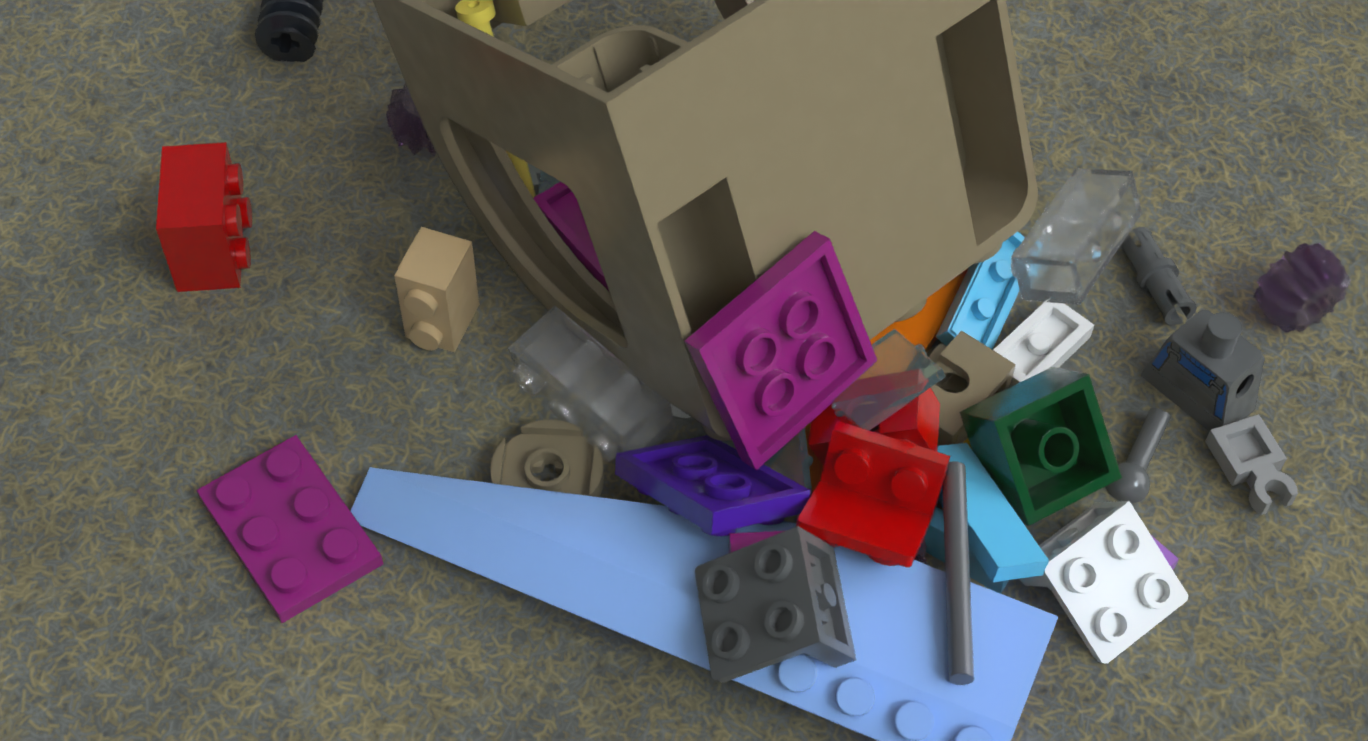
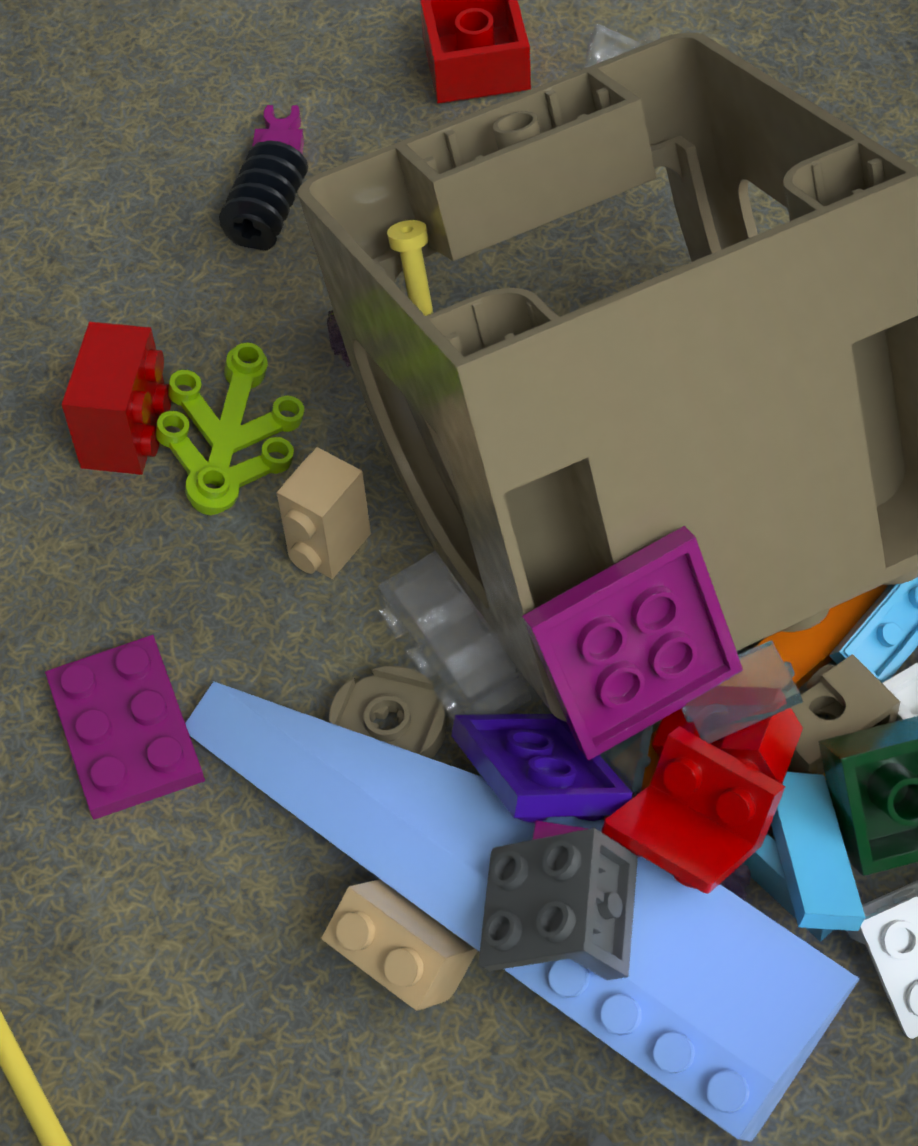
camera: 20 degrees right, 0 degrees up
(315, 173) = (227, 434): none -> lime plant
(622, 677) = (398, 944): none -> tan brick
(957, 576) = (761, 911): dark grey bar -> none

